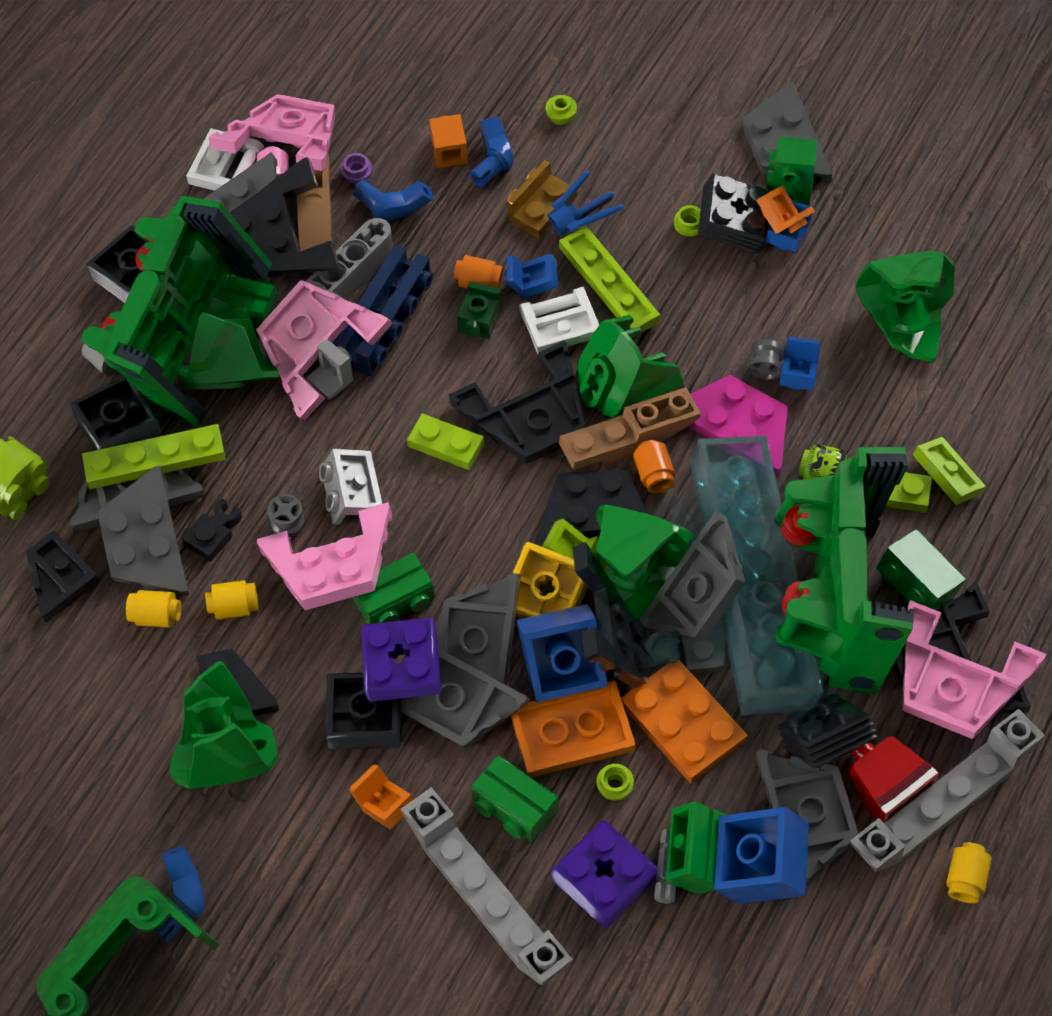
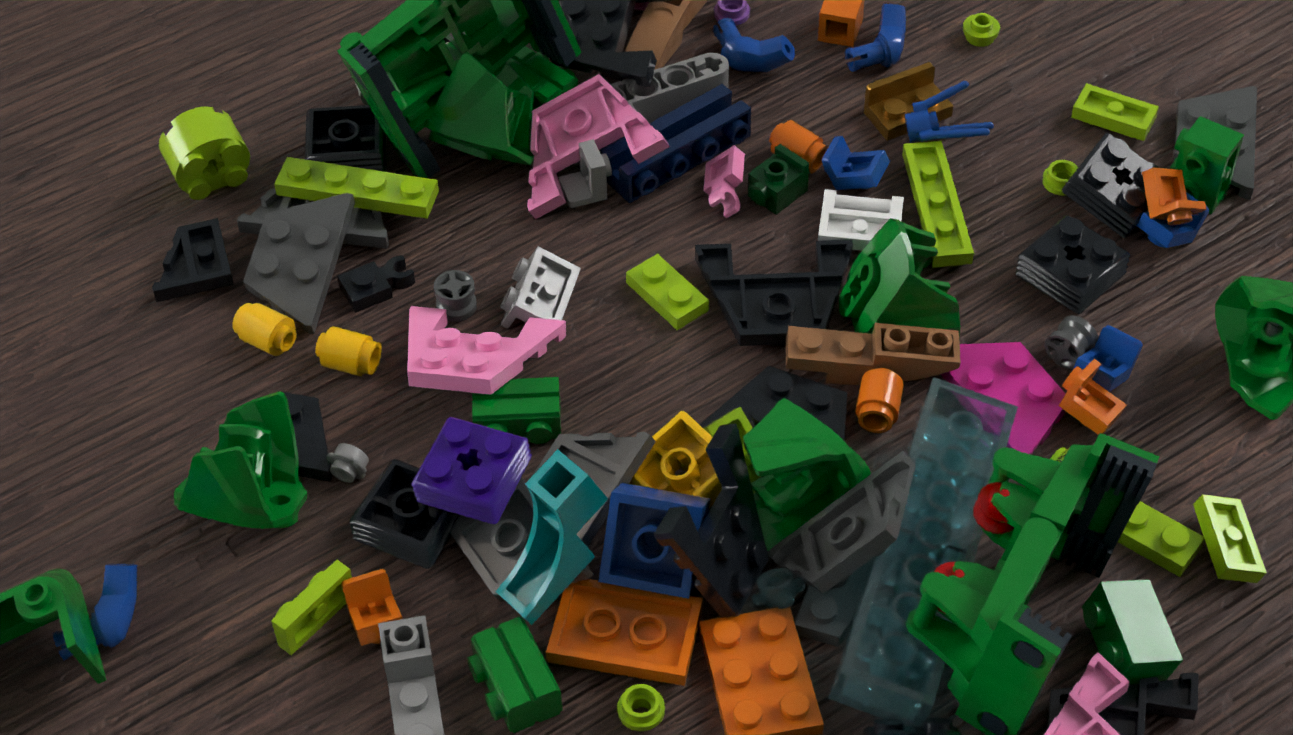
camera: 25 degrees right, 10 degrees down
(288, 690) = (348, 462): none -> light grey plate
(330, 830) = (311, 609): none -> lime plate
(435, 326) = (722, 177): none -> bright pink plate
(503, 693) = (554, 554): none -> teal arch
(700, 146) = (1115, 112): none -> lime plate
(738, 309) = (1072, 264): none -> black brick
(804, 403) = (1089, 401): none -> orange bracket

